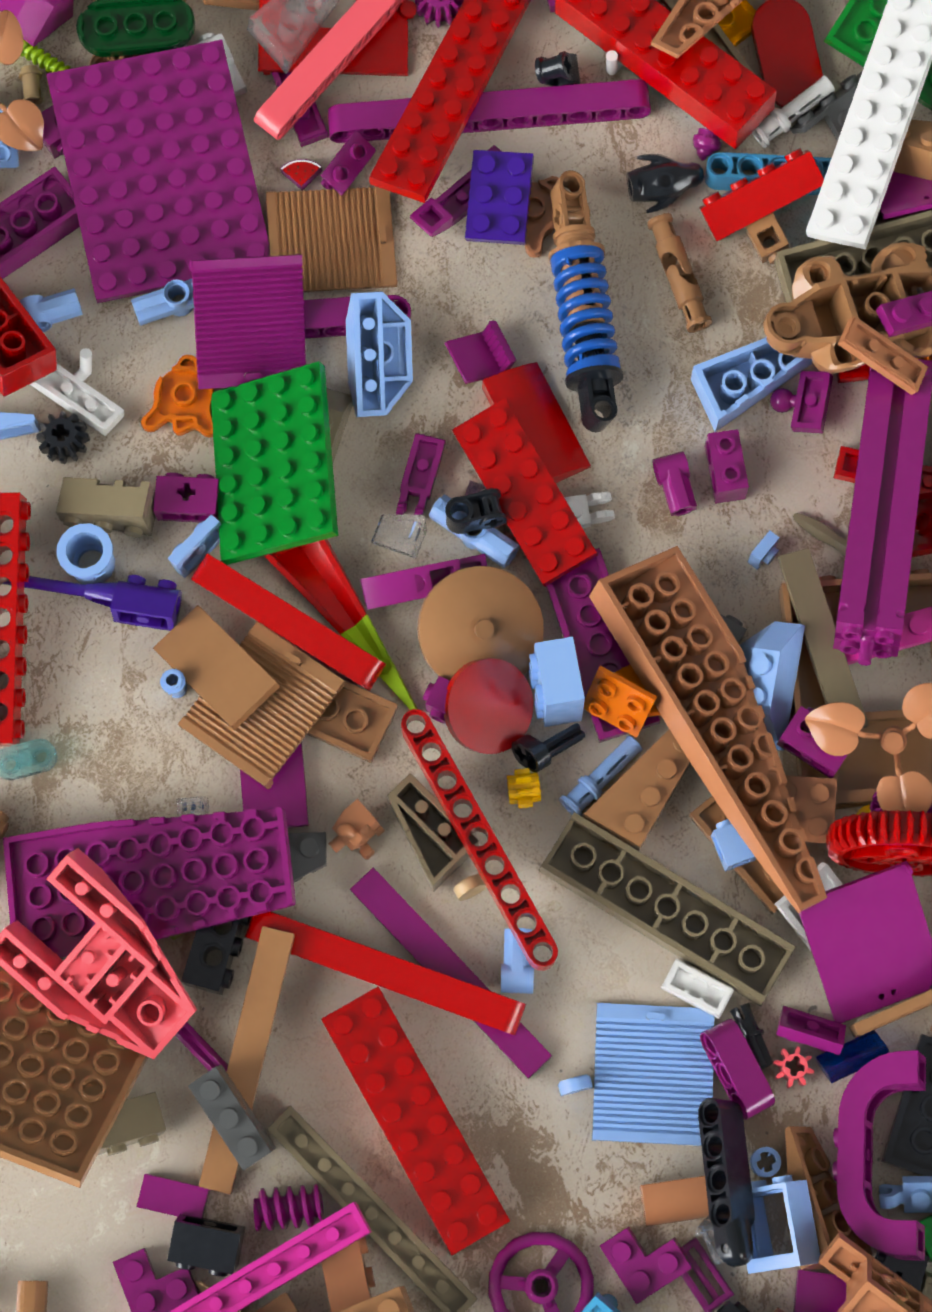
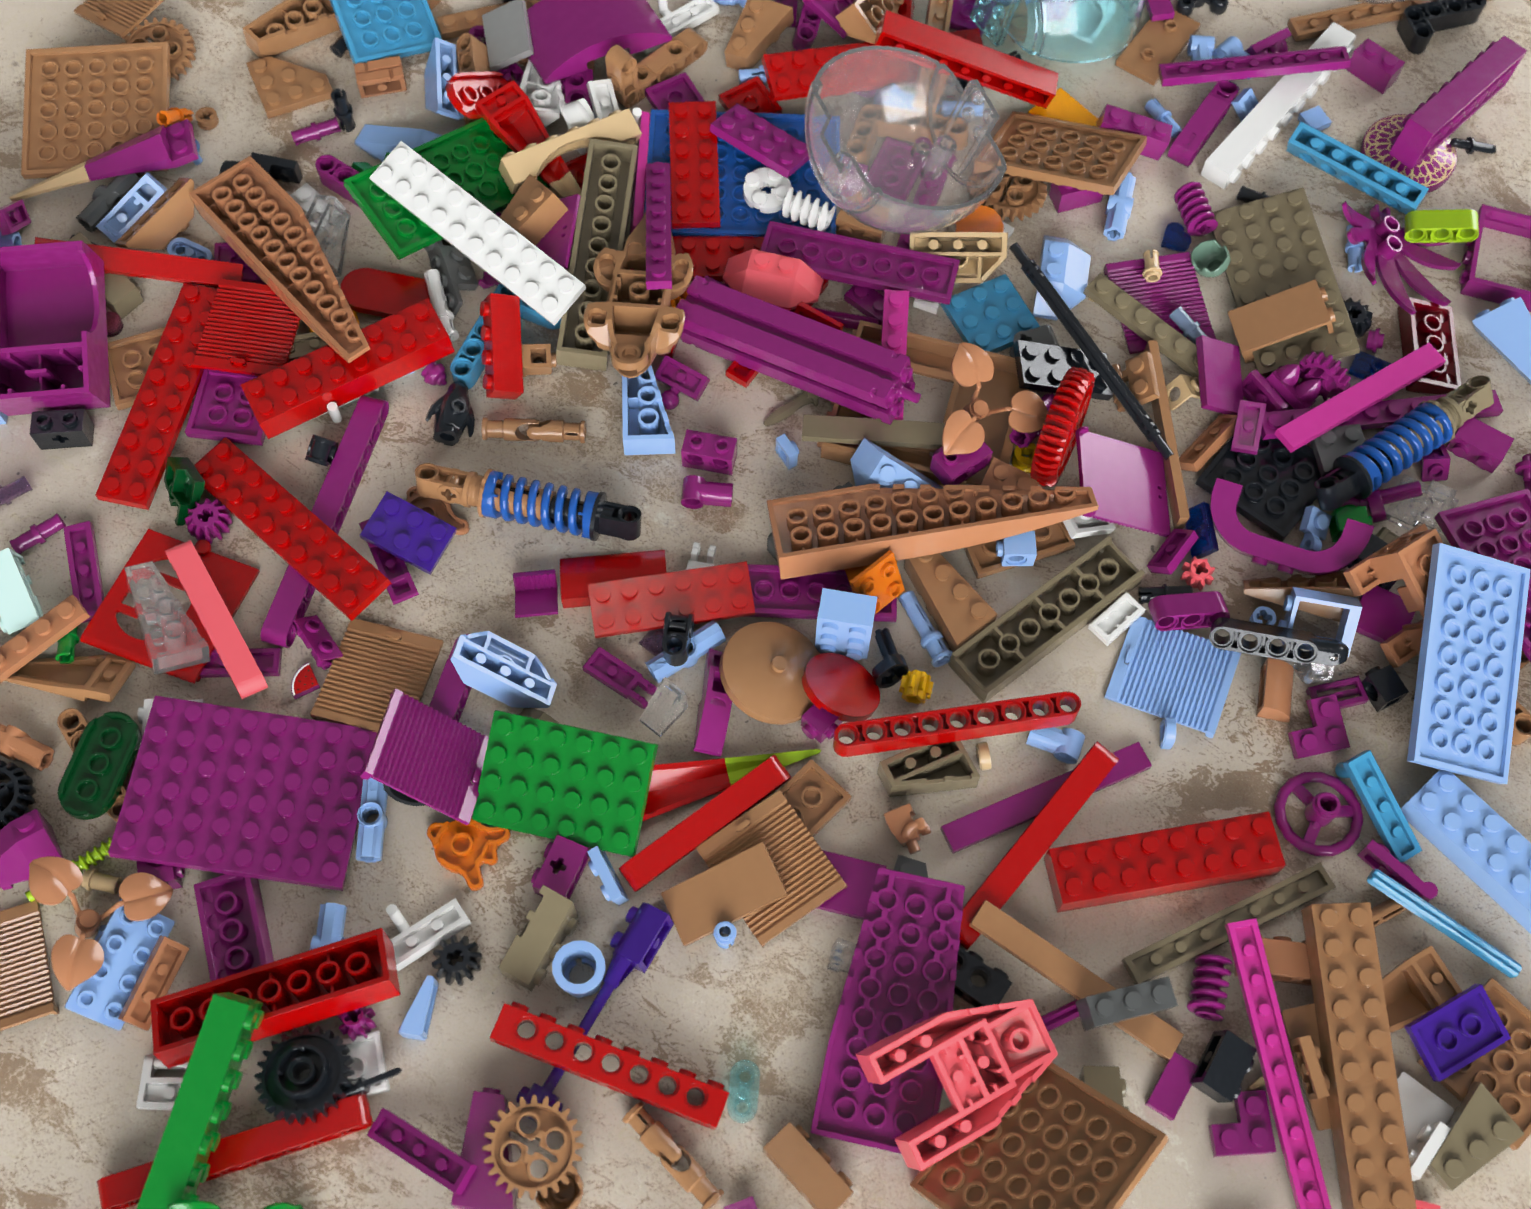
camera: 75 degrees left, 10 degrees down
(882, 355) = (682, 299): nougat tile -> none

